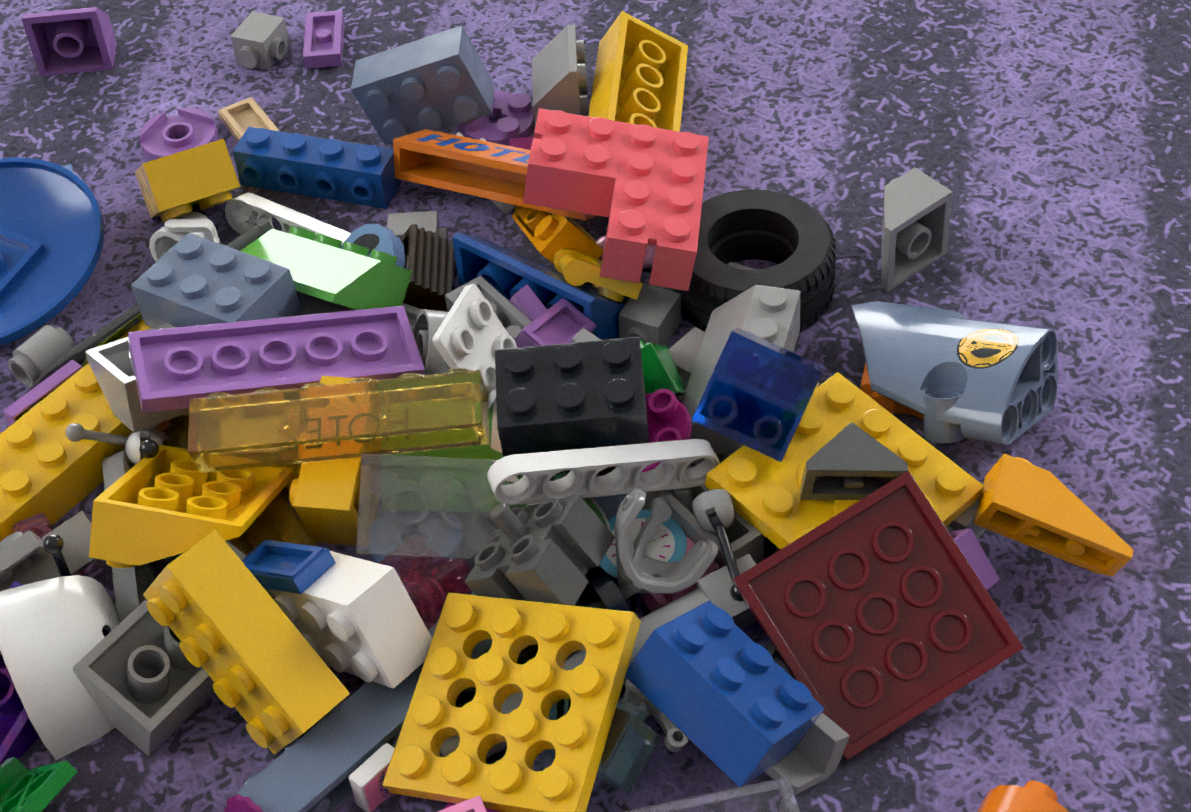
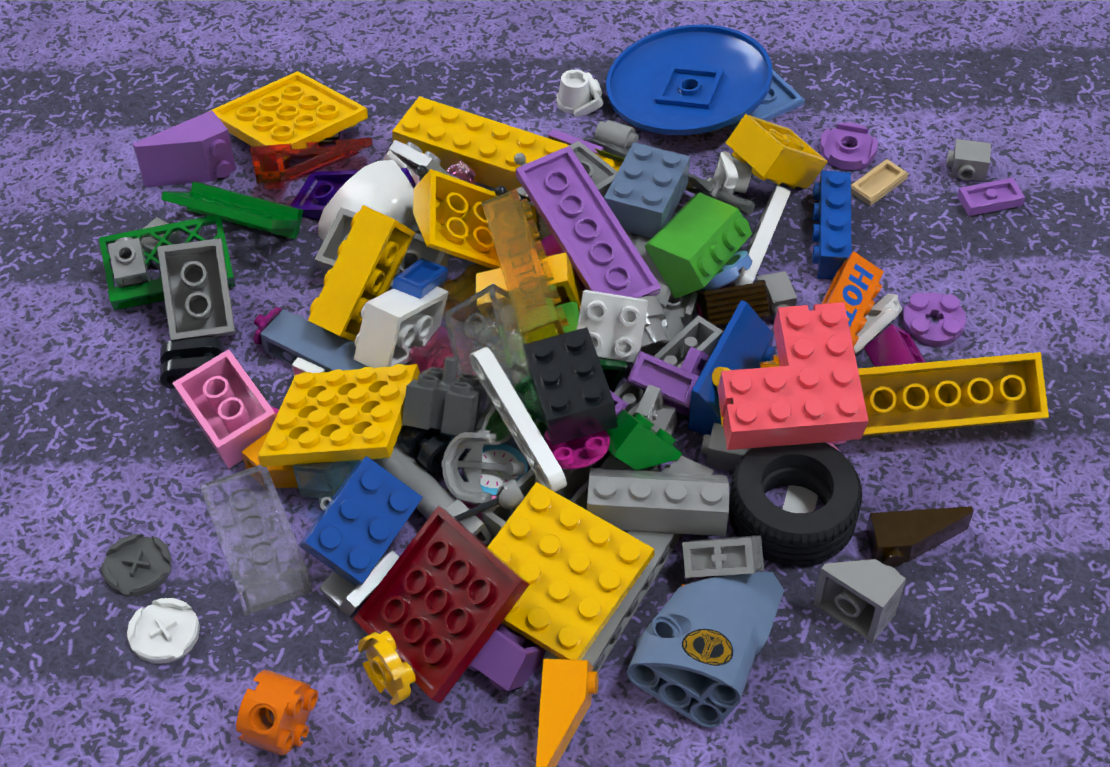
camera: 75 degrees right, 5 degrees up
(71, 40) = (924, 59): medium lavender slope -> none
(424, 85) = (922, 257): sand blue brick -> none
(561, 75) = (973, 340): light grey slope -> none
(758, 394) = (595, 488): clear blue slope -> none
(817, 180) = (907, 534): none -> dark brown slope
(835, 328) = (723, 556): none -> light grey hinge
(850, 467) = (548, 559): dark grey slope -> none
(957, 703) = (385, 666): none -> yellow plate

